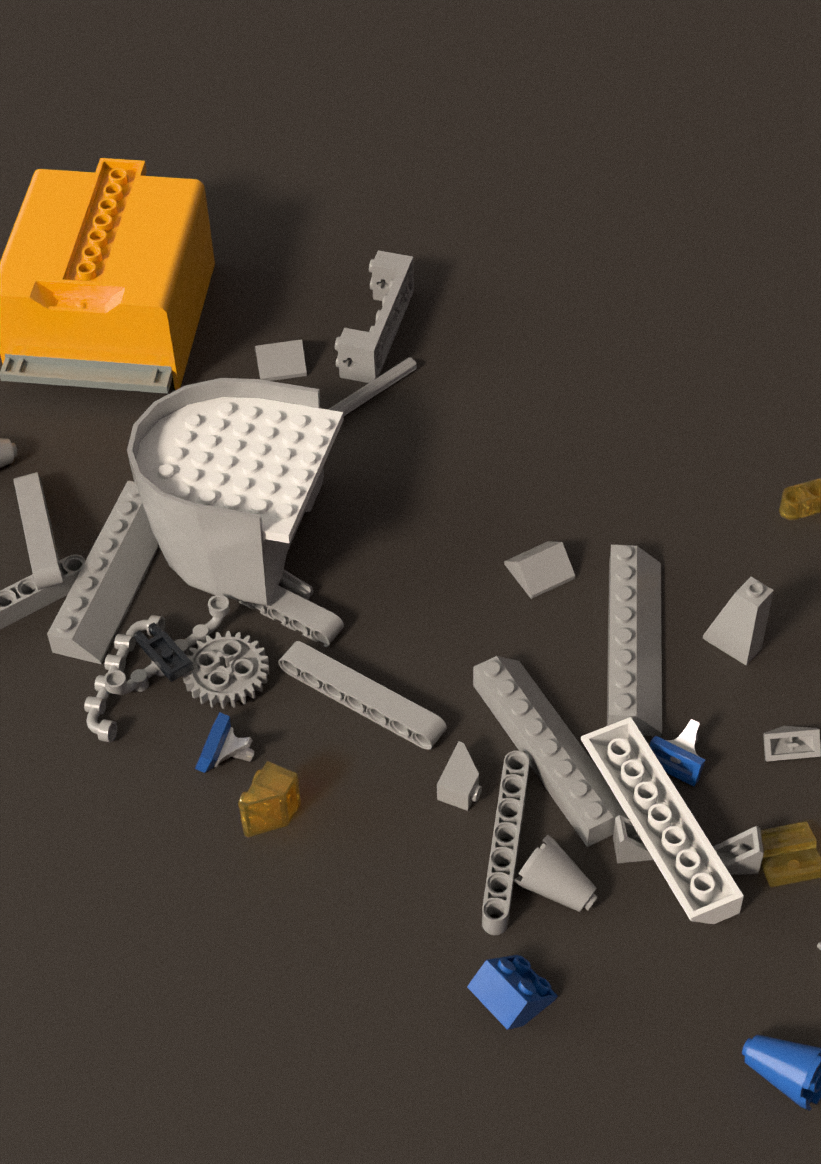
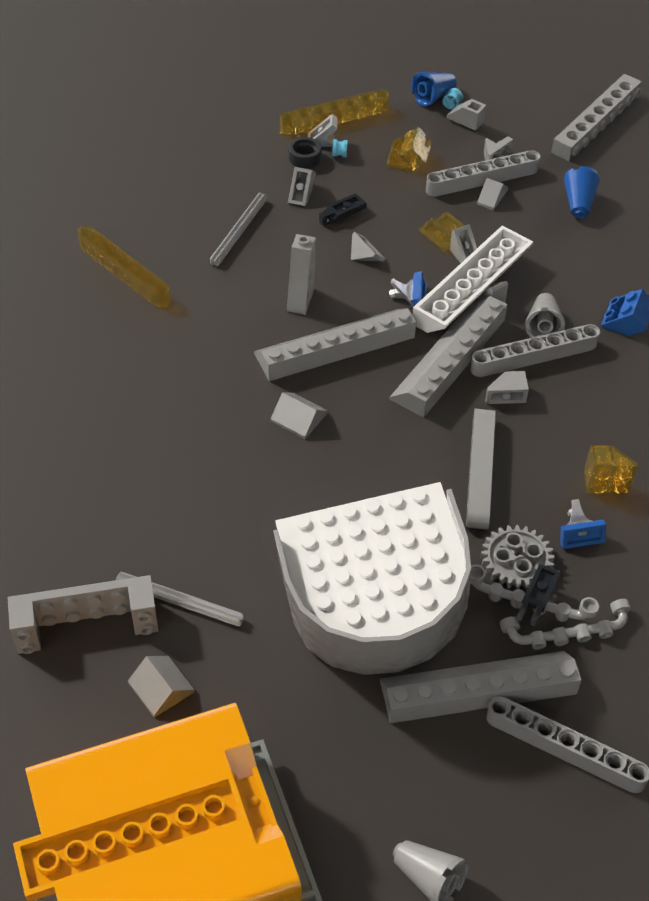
camera: 120 degrees left, 0 degrees up
(38, 531) = (483, 755): light grey beam -> none

